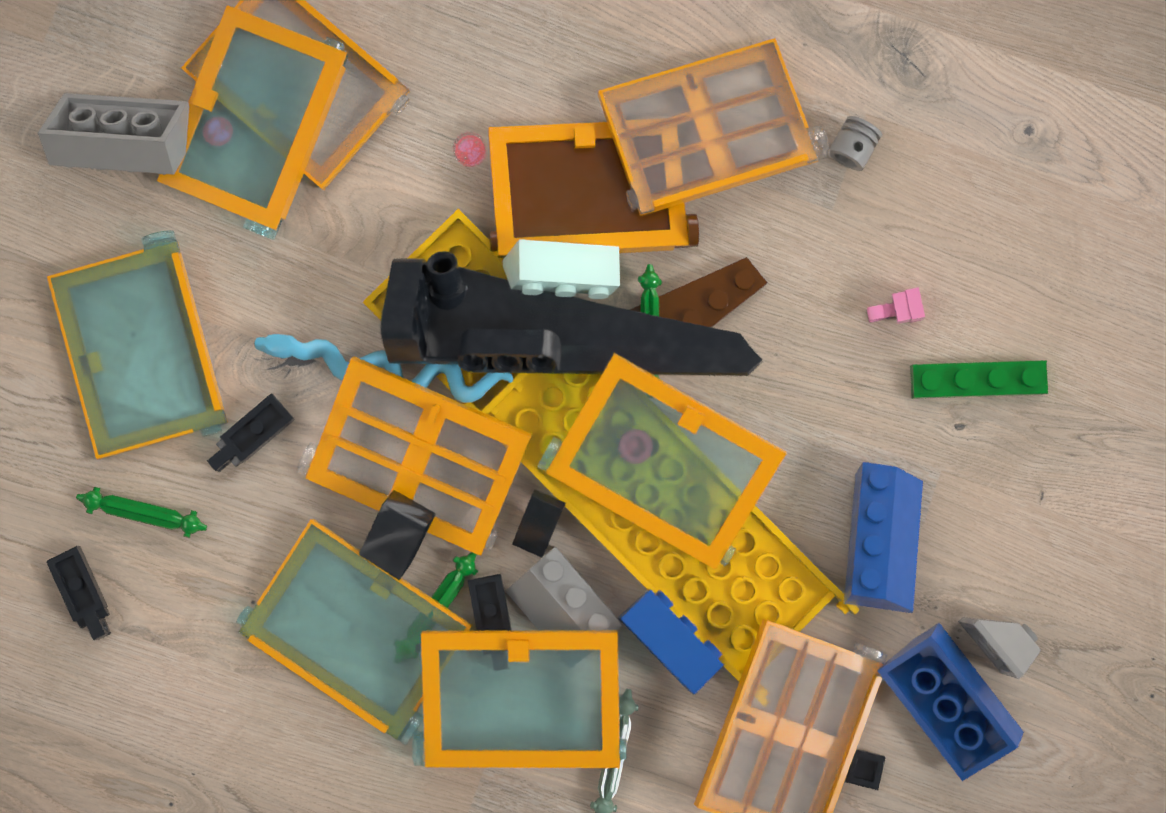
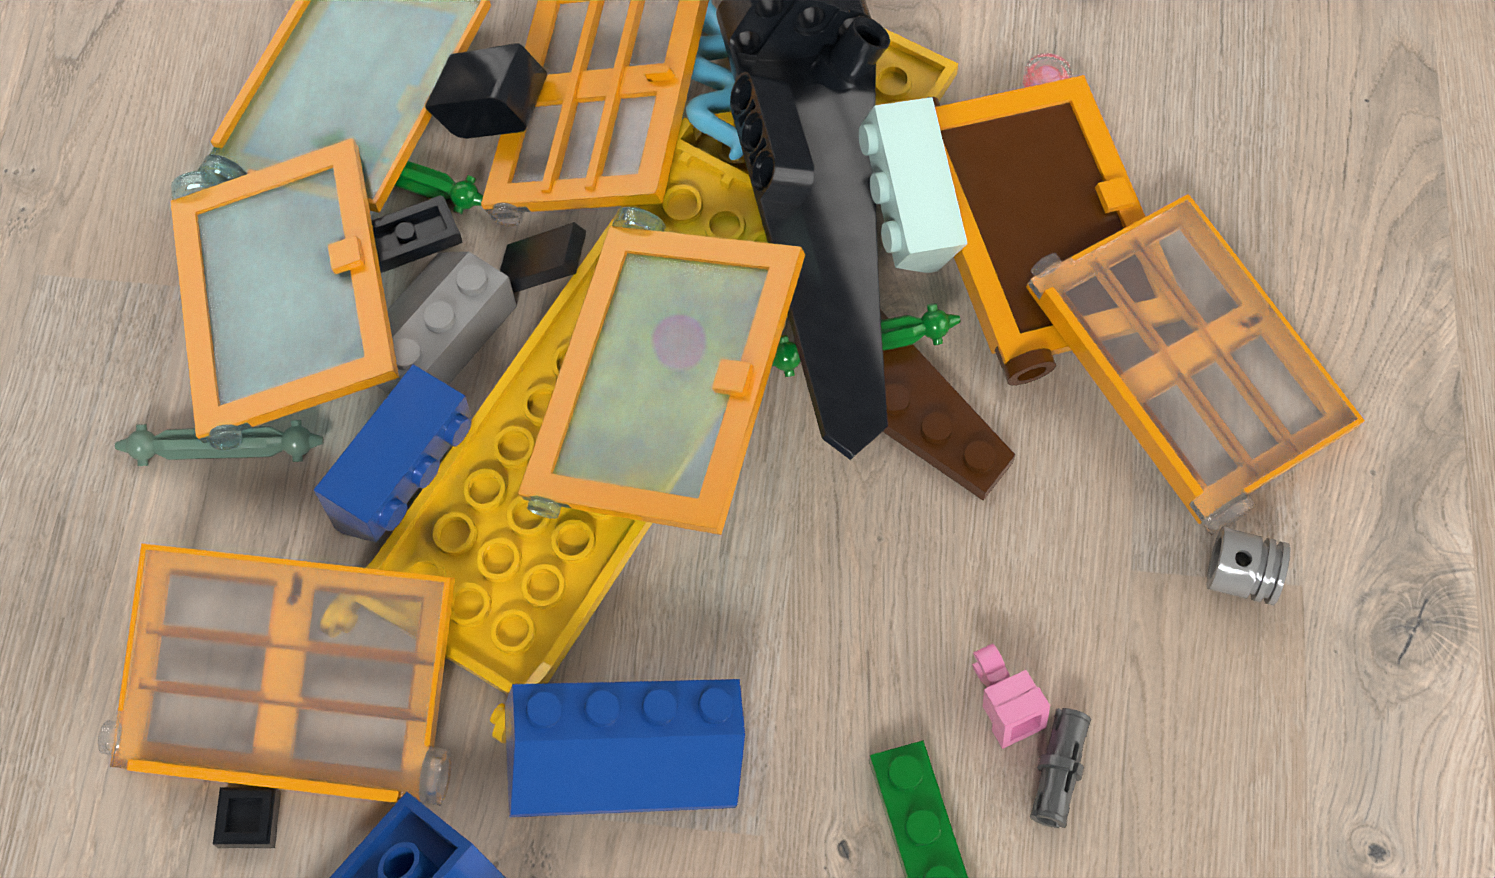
camera: 75 degrees right, 20 degrees down
(945, 290) = (1060, 768): none -> dark grey pin

